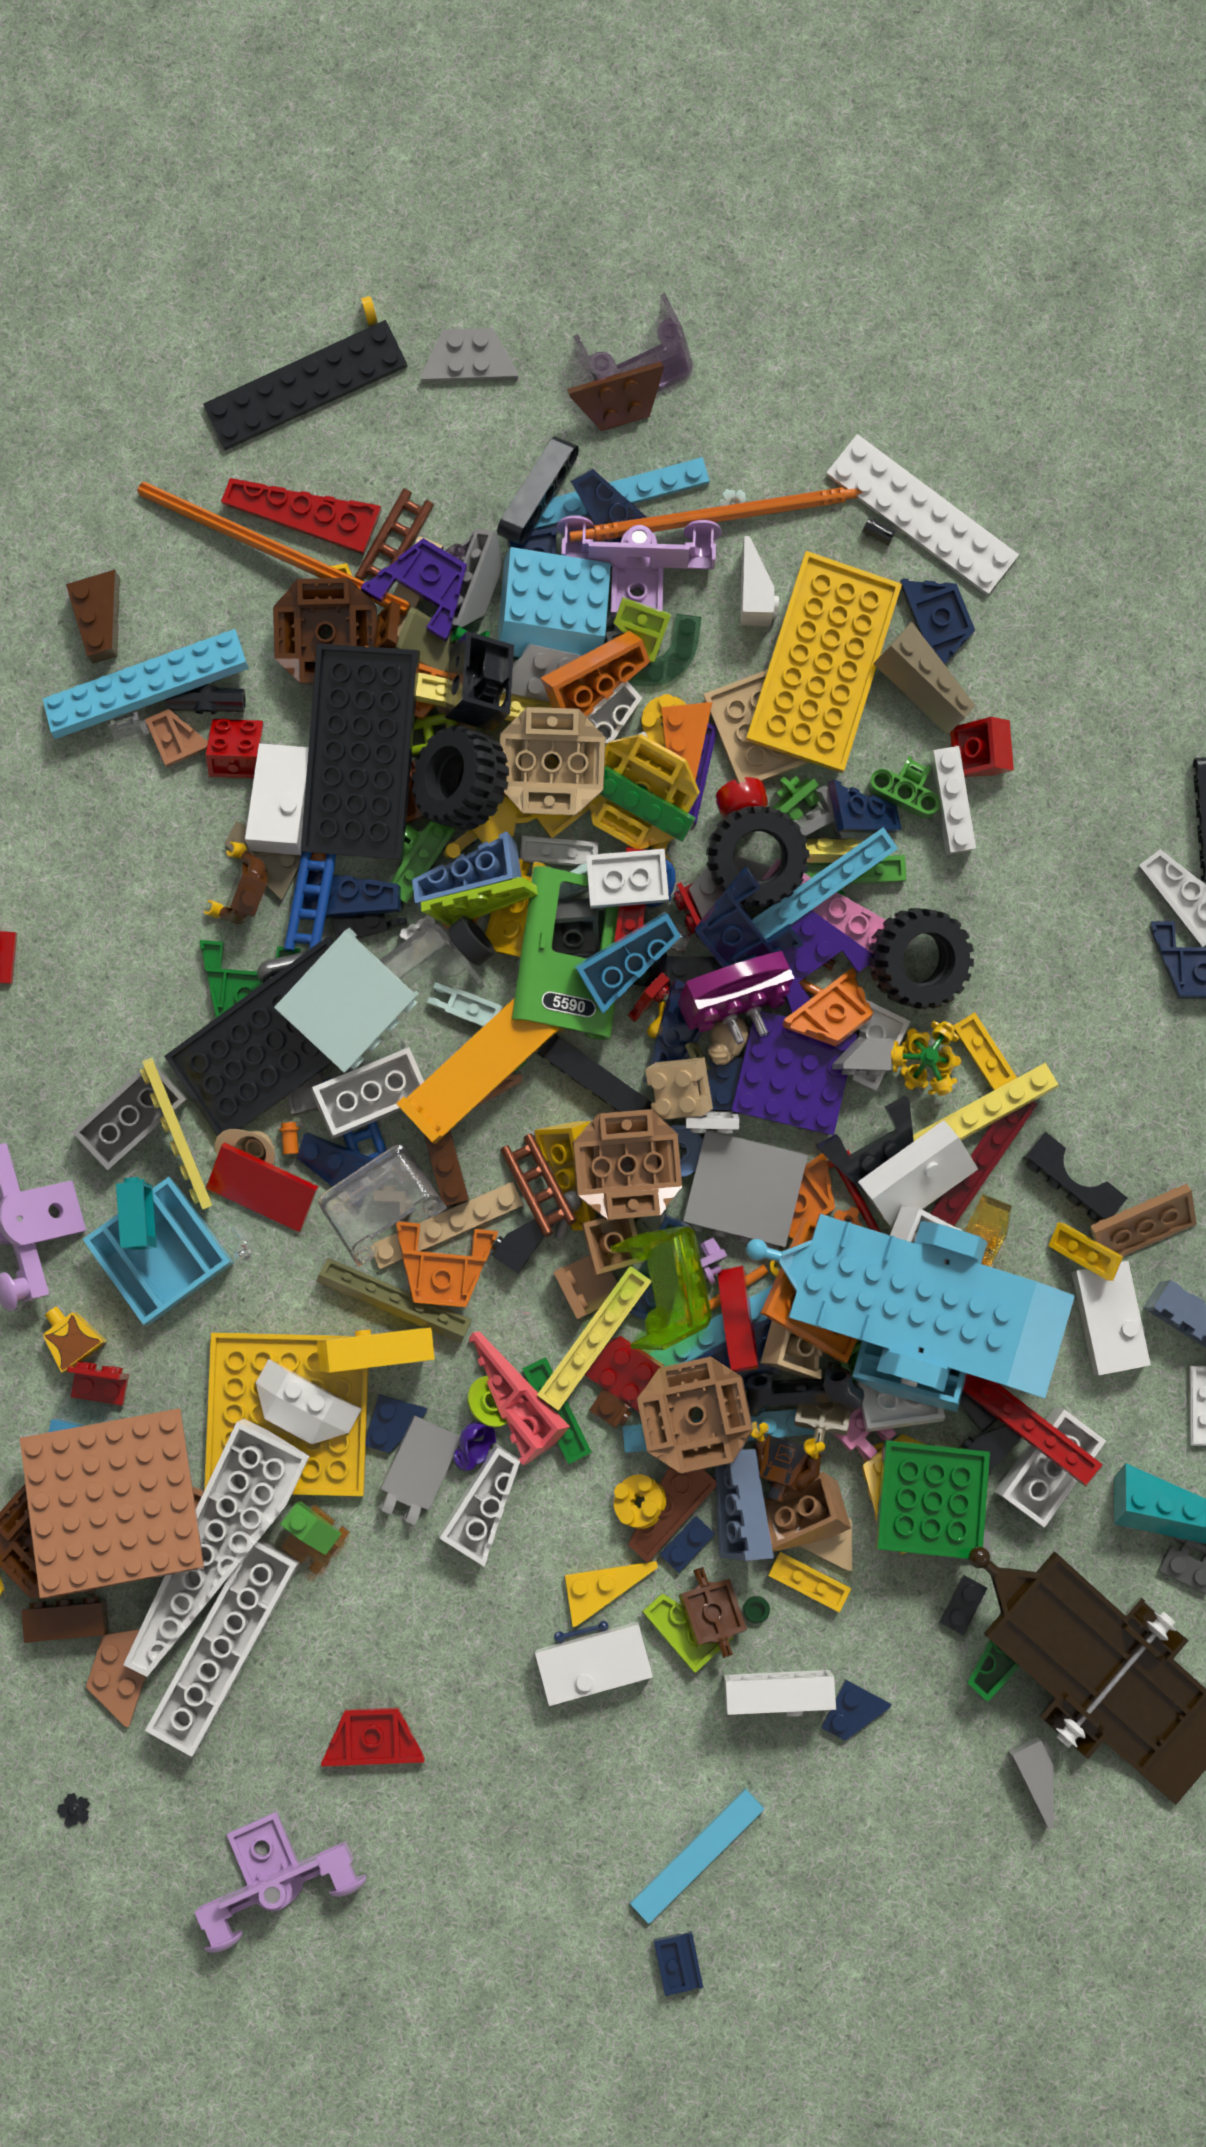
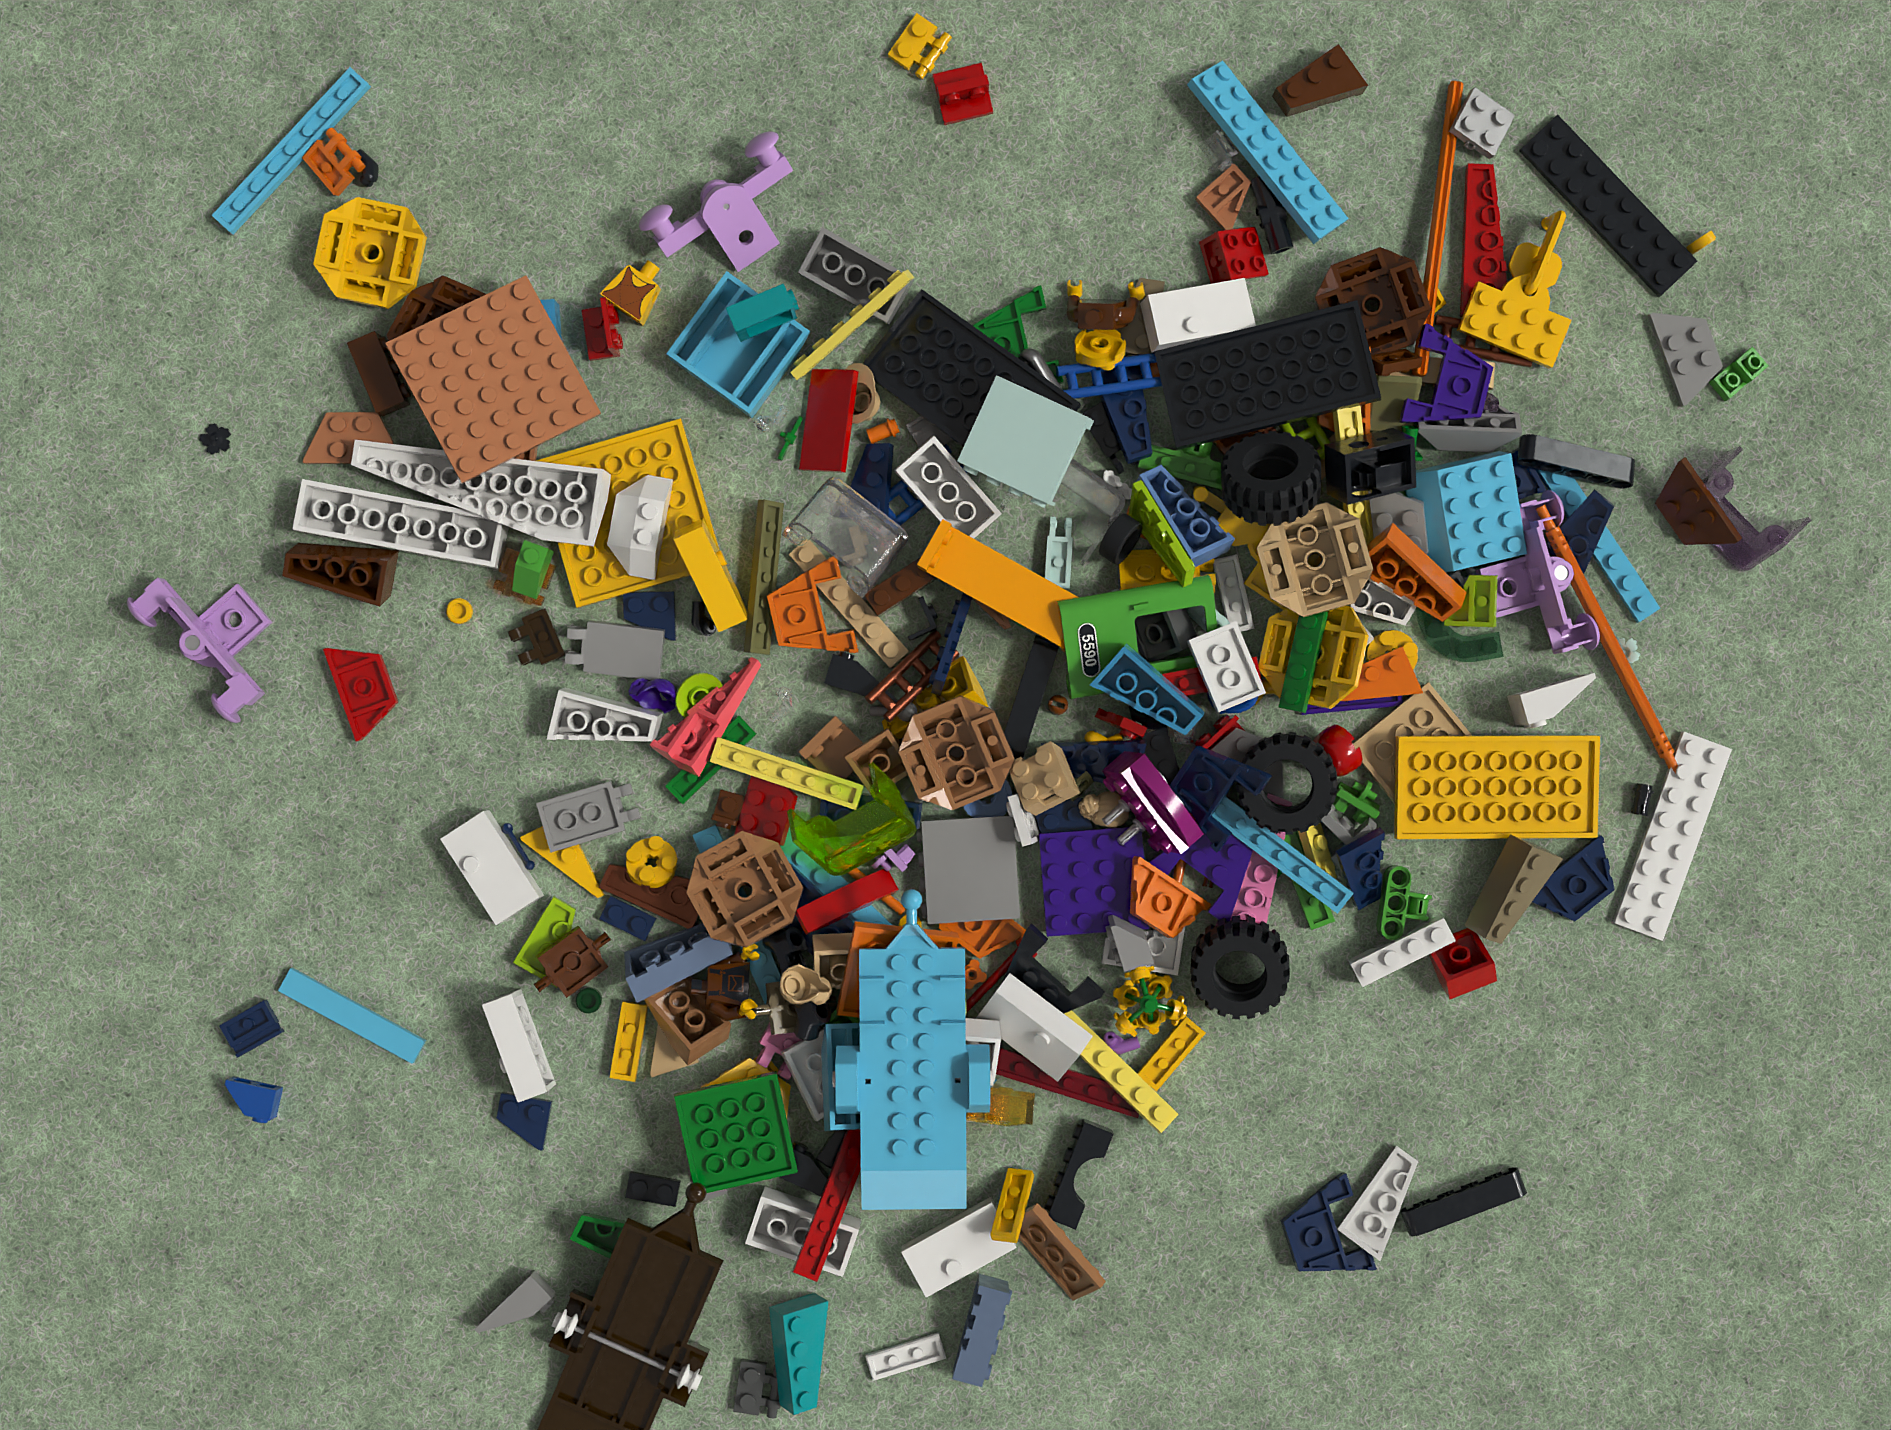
camera: 75 degrees right, 5 degrees up
(187, 476) = (1481, 123): none -> light grey plate
(250, 1717) = (345, 570): none -> reddish brown wedge
(265, 1231) = (789, 437): none -> green piece
(281, 913) = (1088, 349): none -> yellow plate
(328, 1616) = (459, 611): none -> yellow tile
(379, 1539) = (543, 637): none -> dark brown plate
(383, 505) = (1513, 317): none -> yellow plate
(417, 1377) = (700, 621): none -> black arm
(484, 1148) = (931, 616): none -> black bracket
(504, 316) = (1738, 374): none -> bright green slope
(527, 1144) = (946, 653): none -> dark blue wing
(572, 1552) = (585, 815): none -> light grey tile
(616, 1057) = (1055, 709): none -> dark orange hinge
(750, 1981) = (255, 1098): none -> blue slope
(807, 1384) = (804, 985): none -> tan hair
(961, 1099) = (1120, 1045): none -> medium lavender arm

